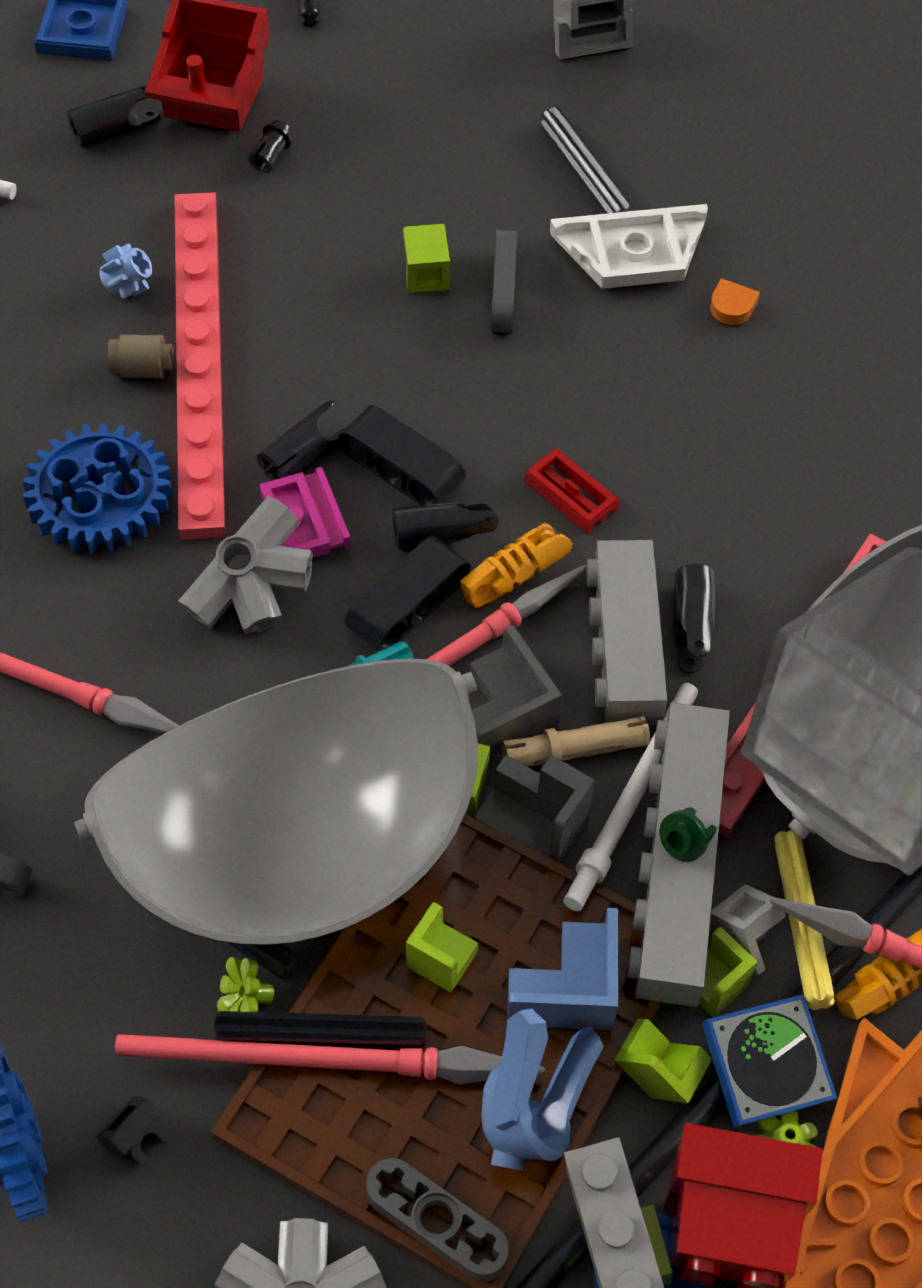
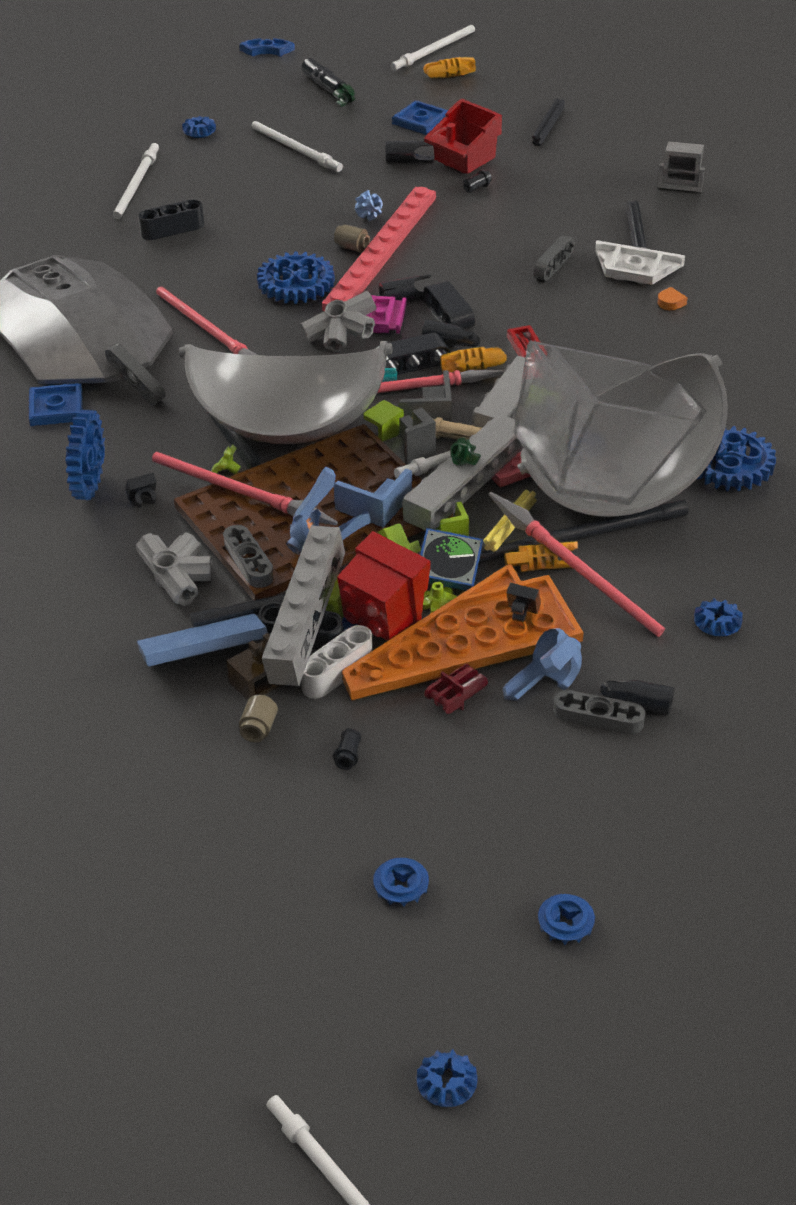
camera: 30 degrees right, 15 degrees down
(321, 1029) = (247, 477): black axle -> none
(426, 258) = (520, 239): lime panel -> none
(439, 950) = (316, 459): lime panel -> none
(747, 918) = (479, 511): light grey panel -> none

